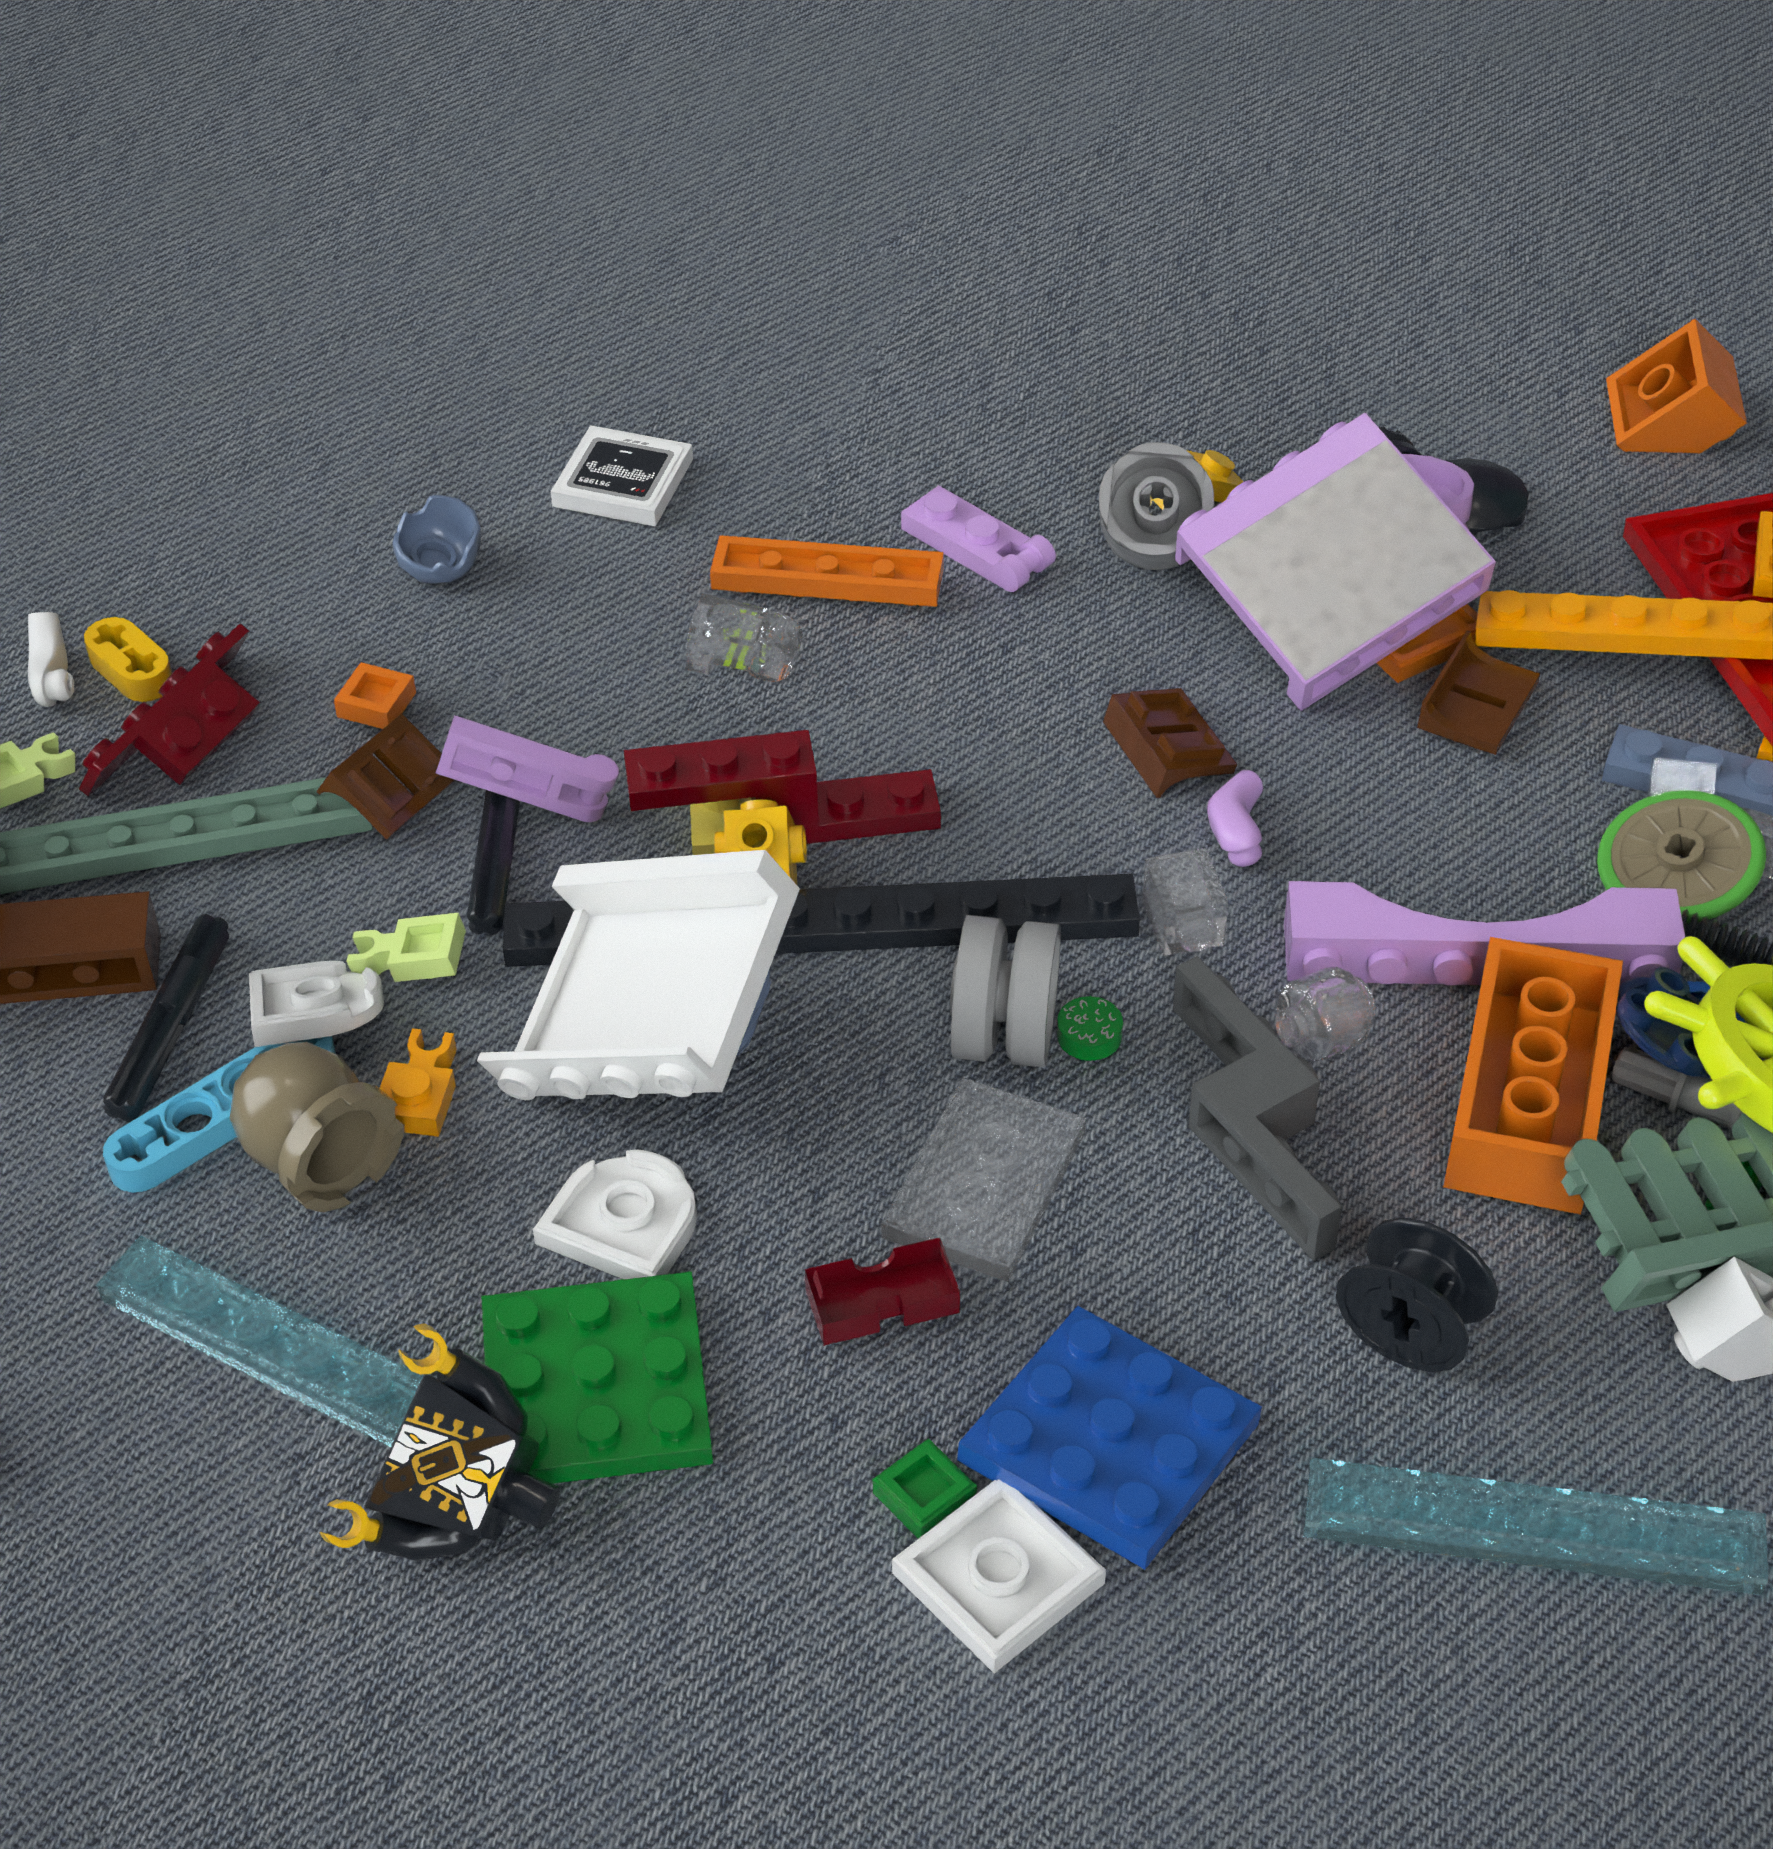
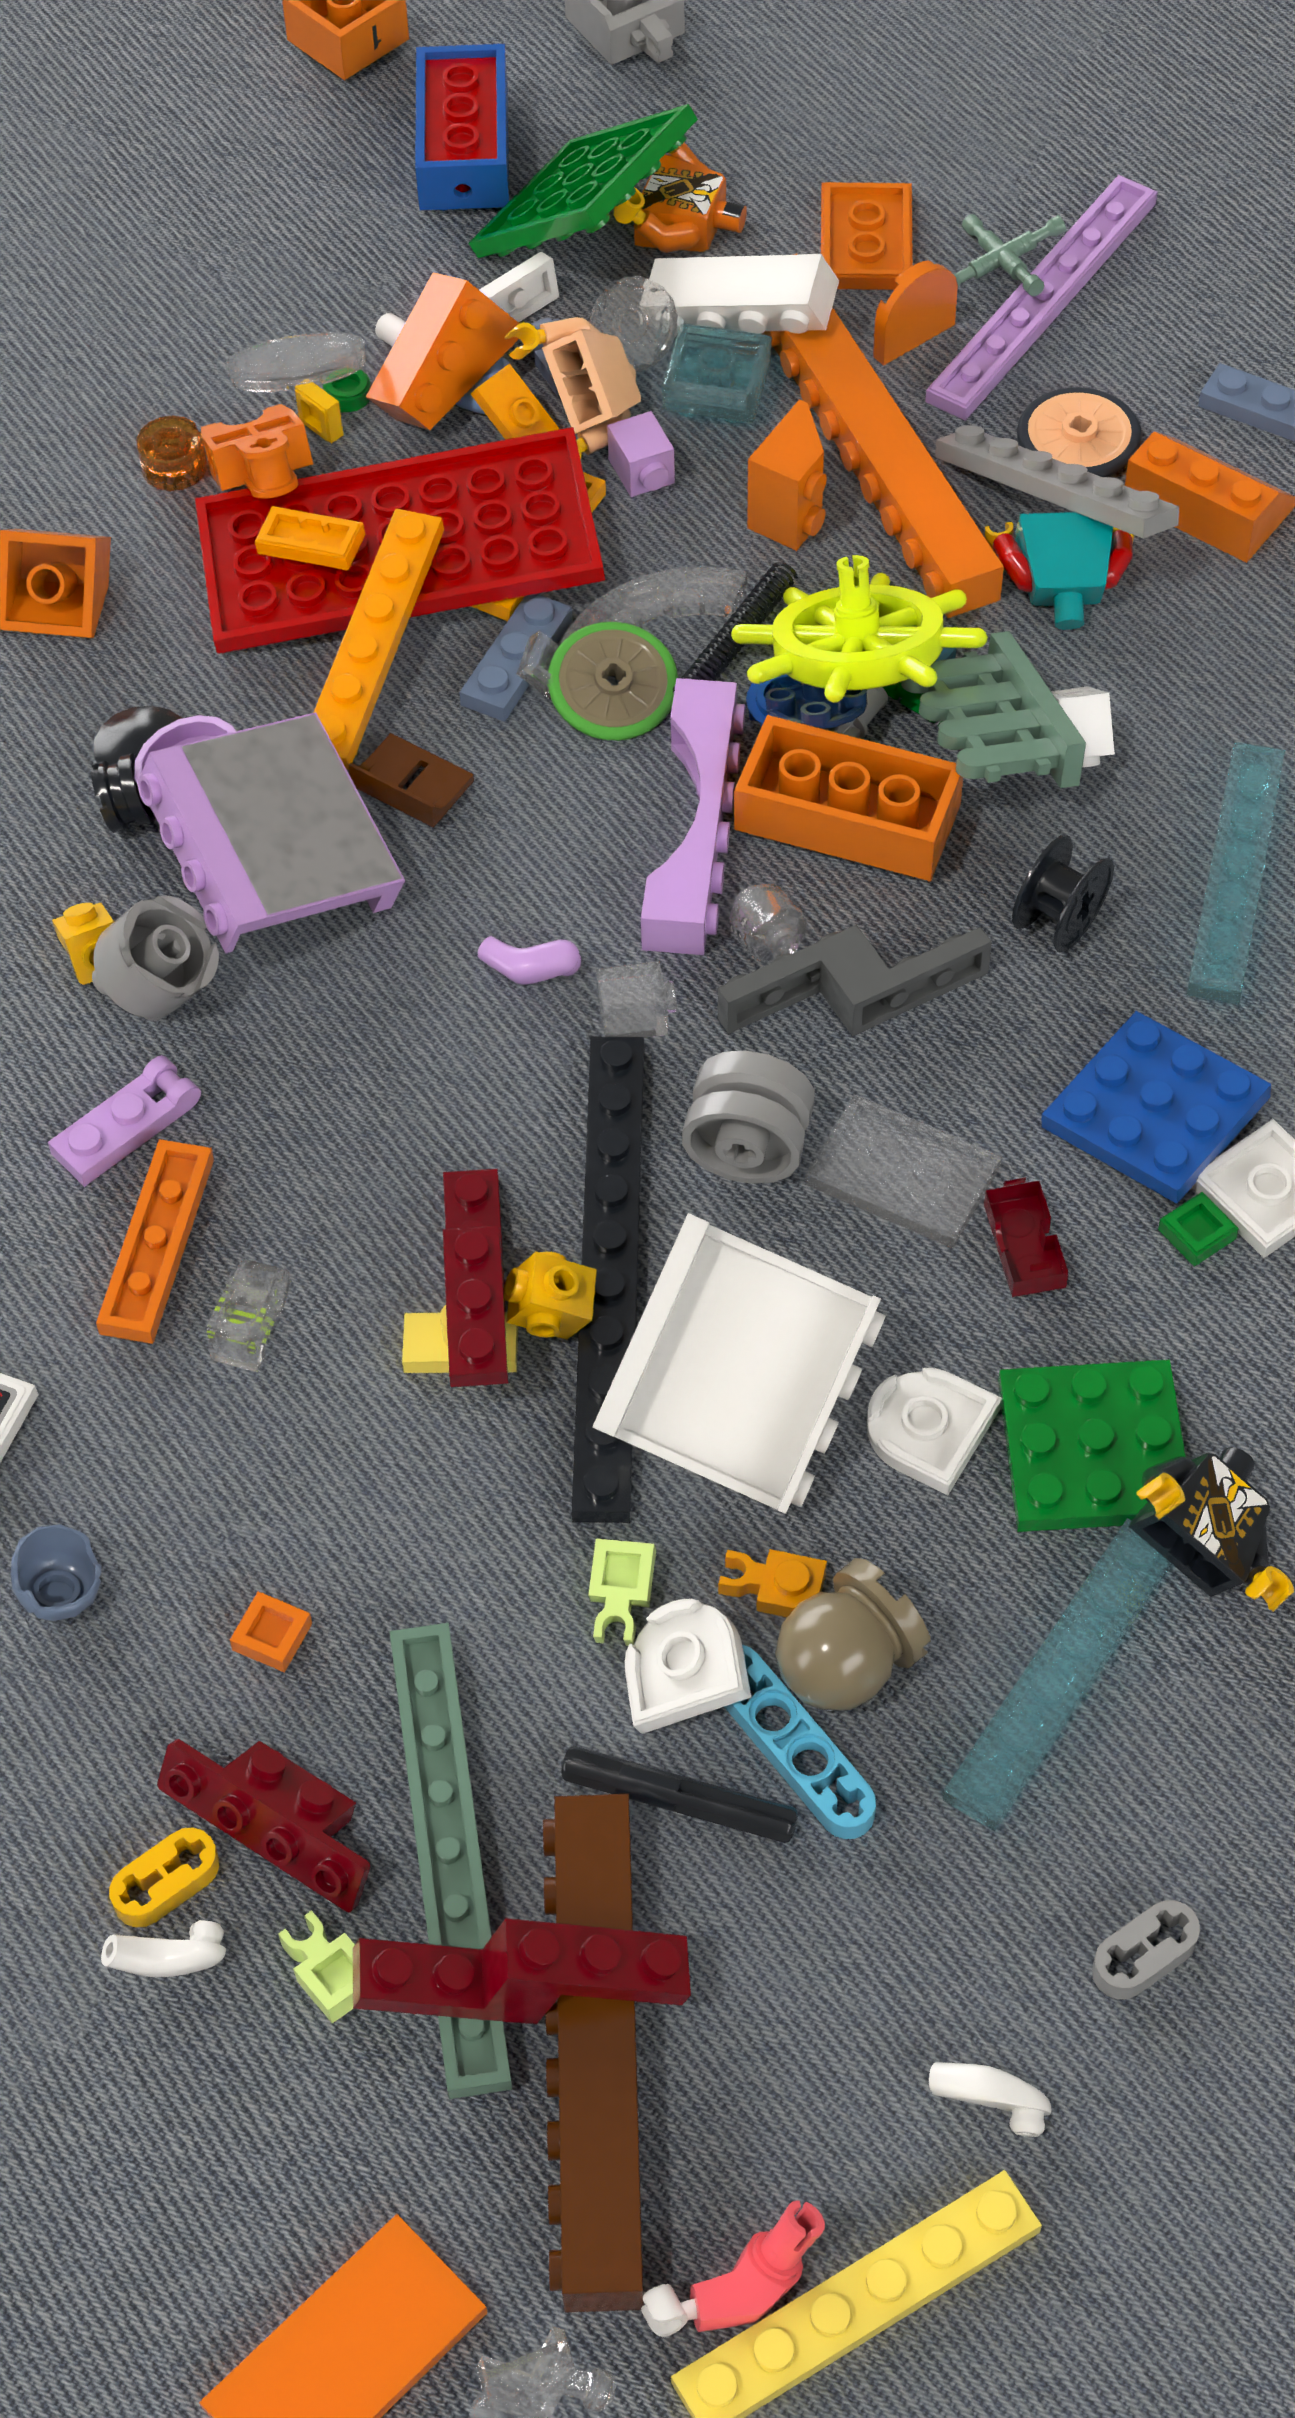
camera: 85 degrees left, 10 degrees up
(375, 791) = (410, 1626): reddish brown piece -> none
(492, 863) = (477, 1523): black axle -> none
(527, 770) = (425, 1478): lavender plate -> none
(1165, 737) = (401, 1019): reddish brown piece -> none

